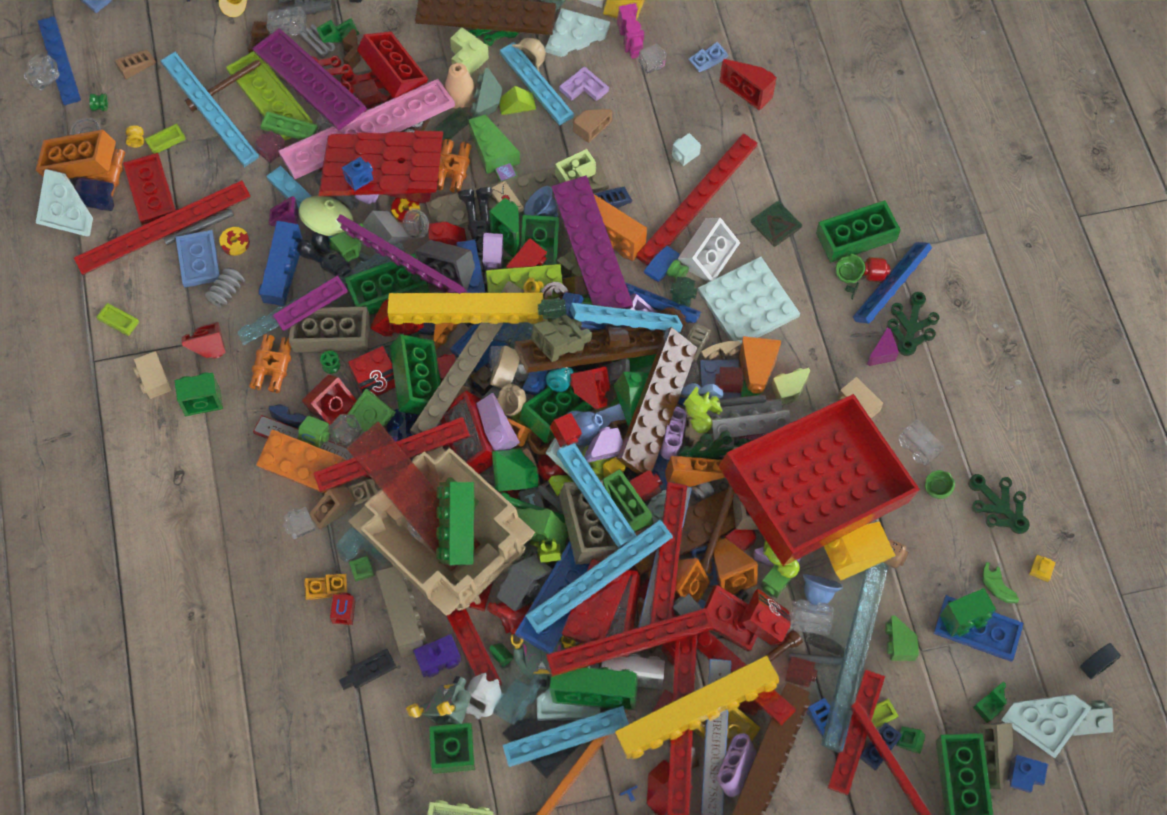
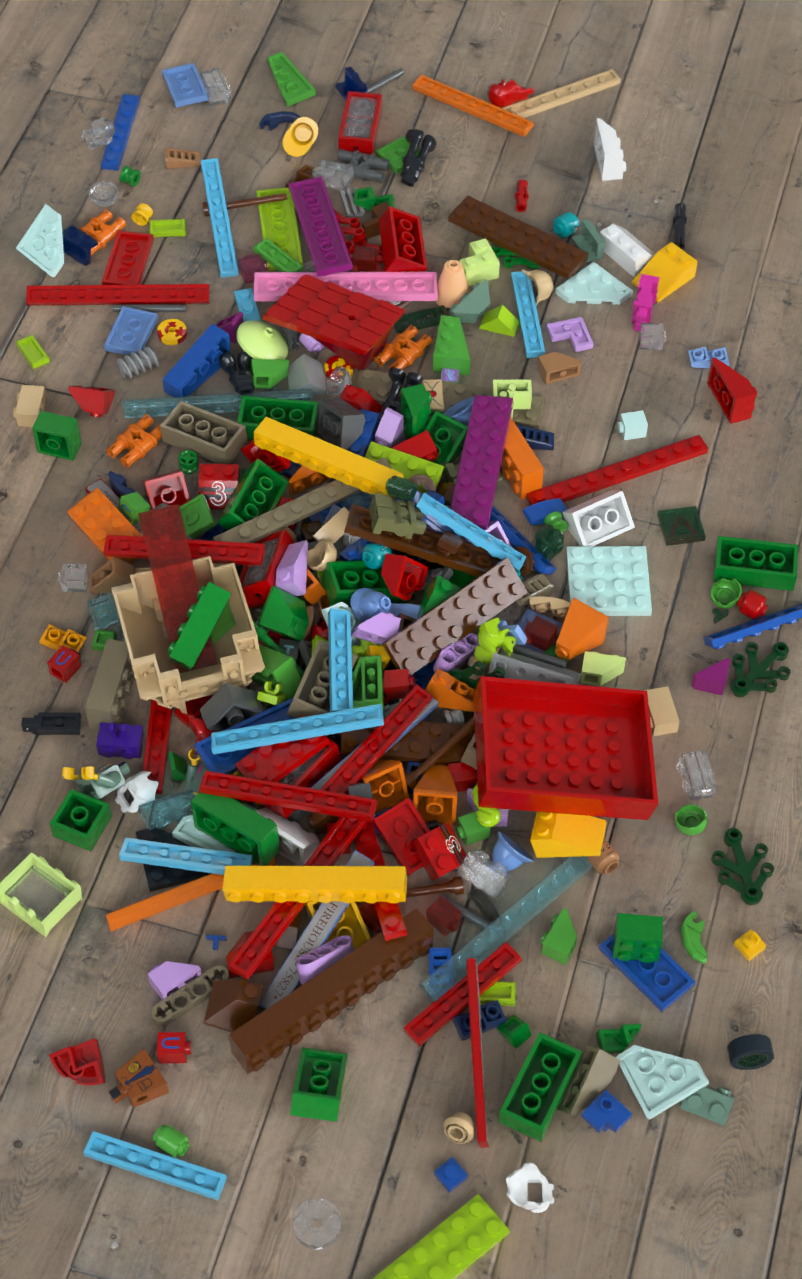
camera: 30 degrees right, 10 degrees down
(77, 154) = (83, 205): orange brick -> none
(310, 303) = (197, 401): magenta panel -> none
(358, 173) = (303, 309): blue brick -> none
(399, 257) = (296, 392): magenta plate -> none
(530, 283) = (404, 468): yellow plate -> none
(566, 430) = (349, 596): red brick -> none

